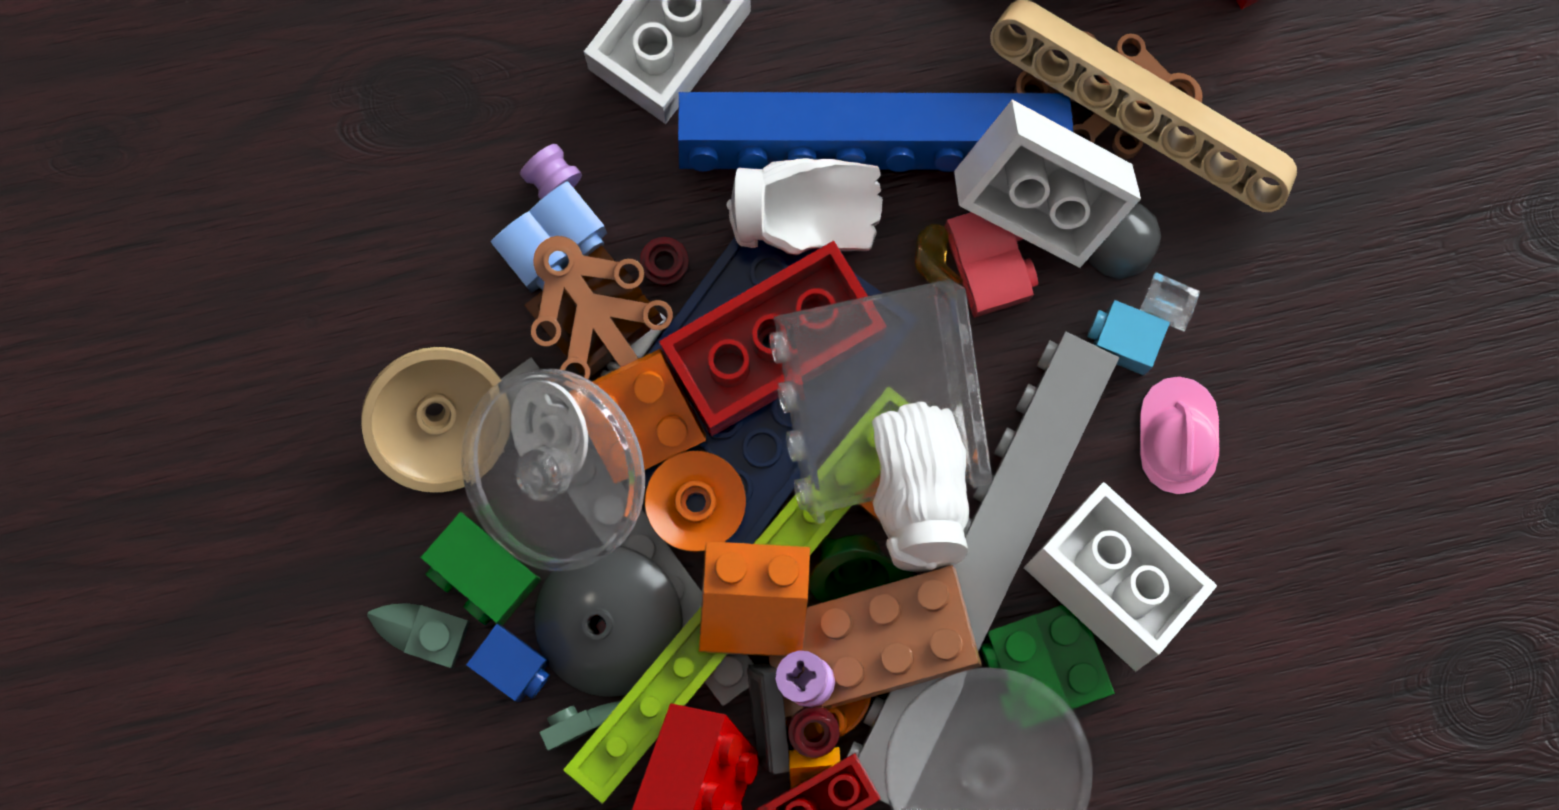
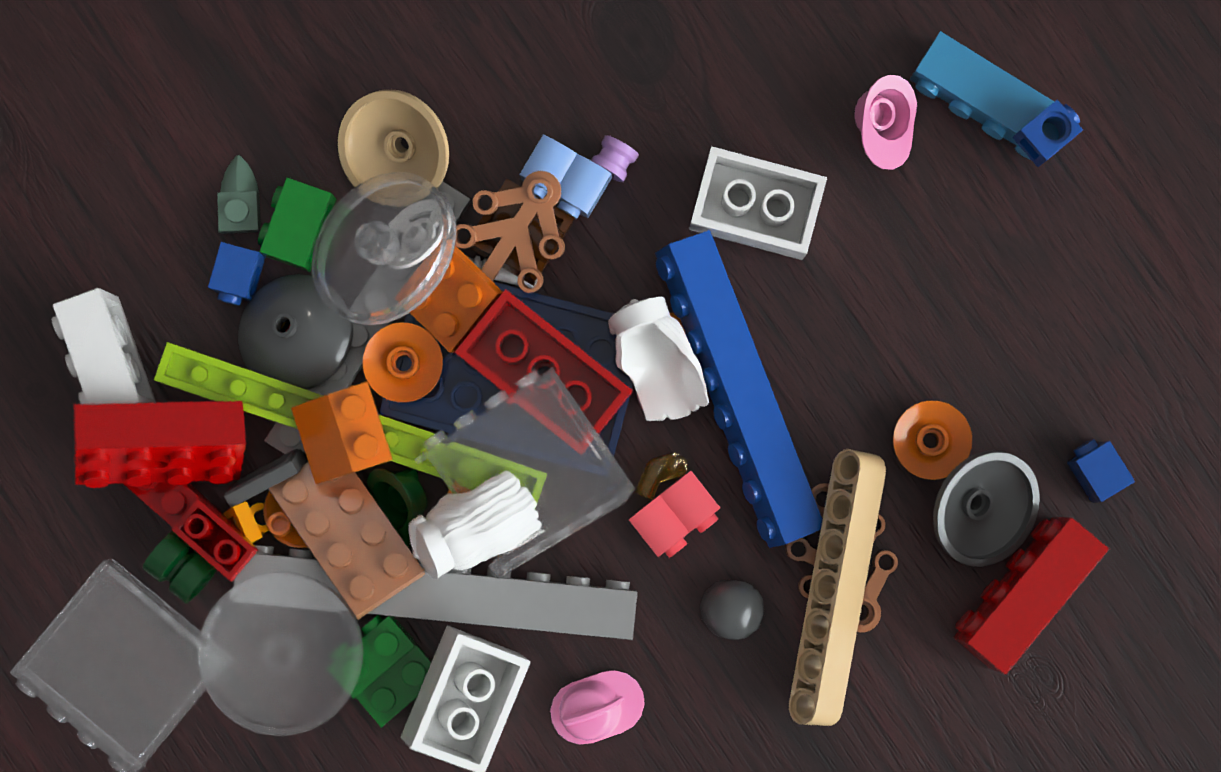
camera: 65 degrees right, 5 degrees up
(571, 725) = (208, 335): sand green plate -> none
(664, 246) = (587, 258): dark red plate -> none
(816, 680) = (301, 501): lavender wheel -> none
(822, 744) = (254, 514): dark red plate -> none
(1046, 184) = (740, 535): white brick -> none
(1129, 335) = (654, 640): medium azure brick -> none
(1170, 301) = (694, 663): clear plate -> none

